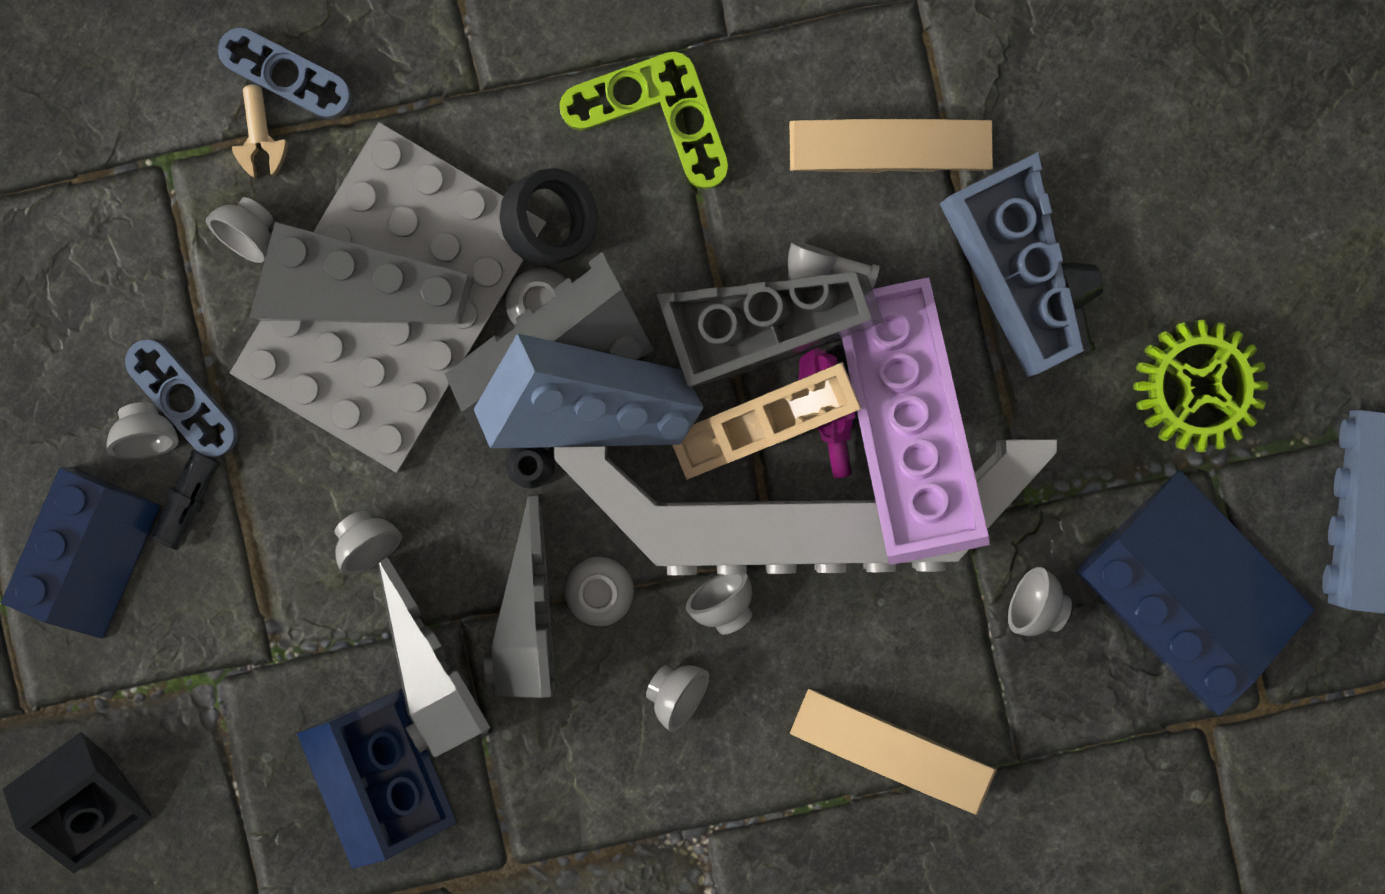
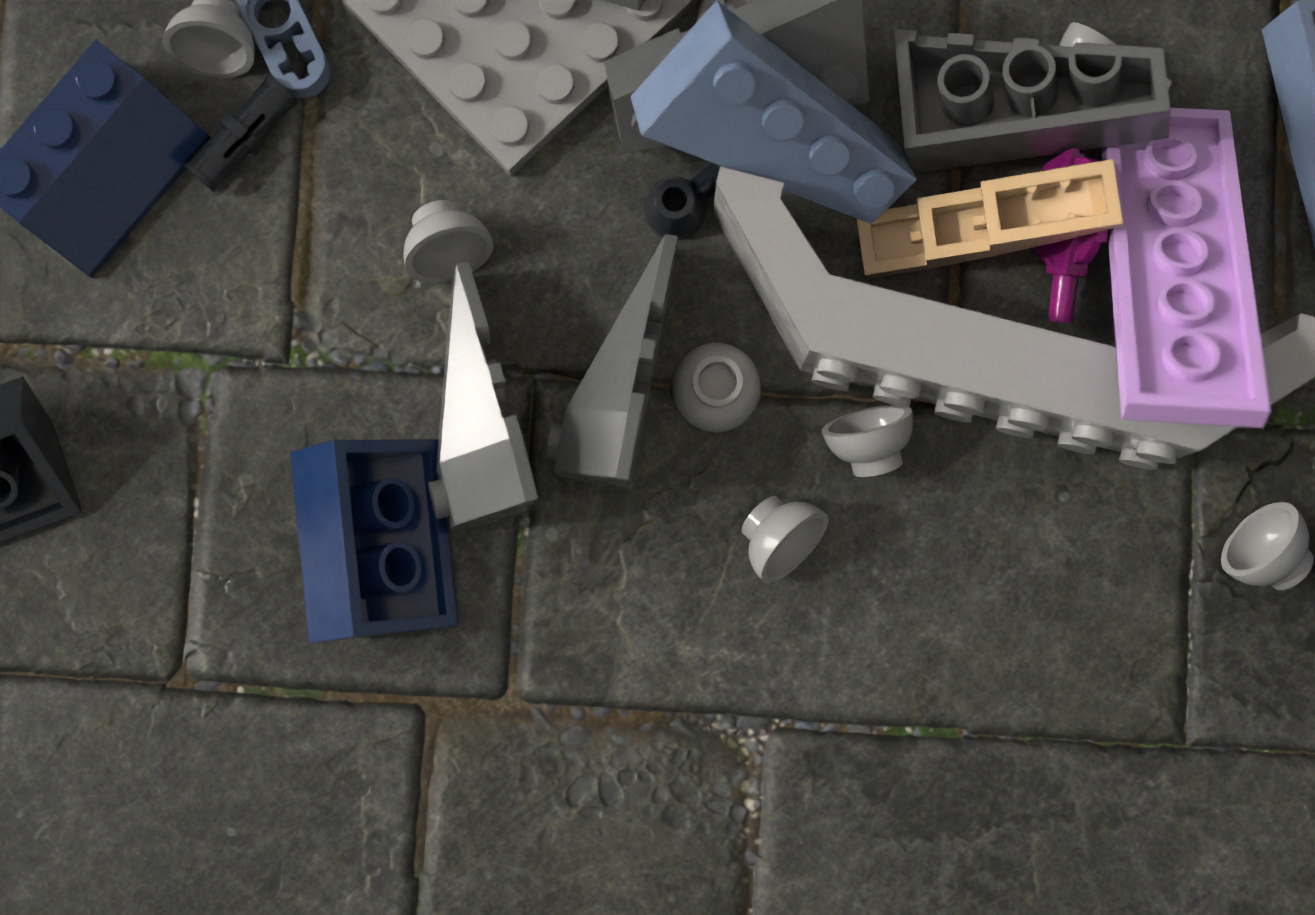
camera: 20 degrees right, 5 degrees down
(893, 751) = (1039, 686): tan slope -> none

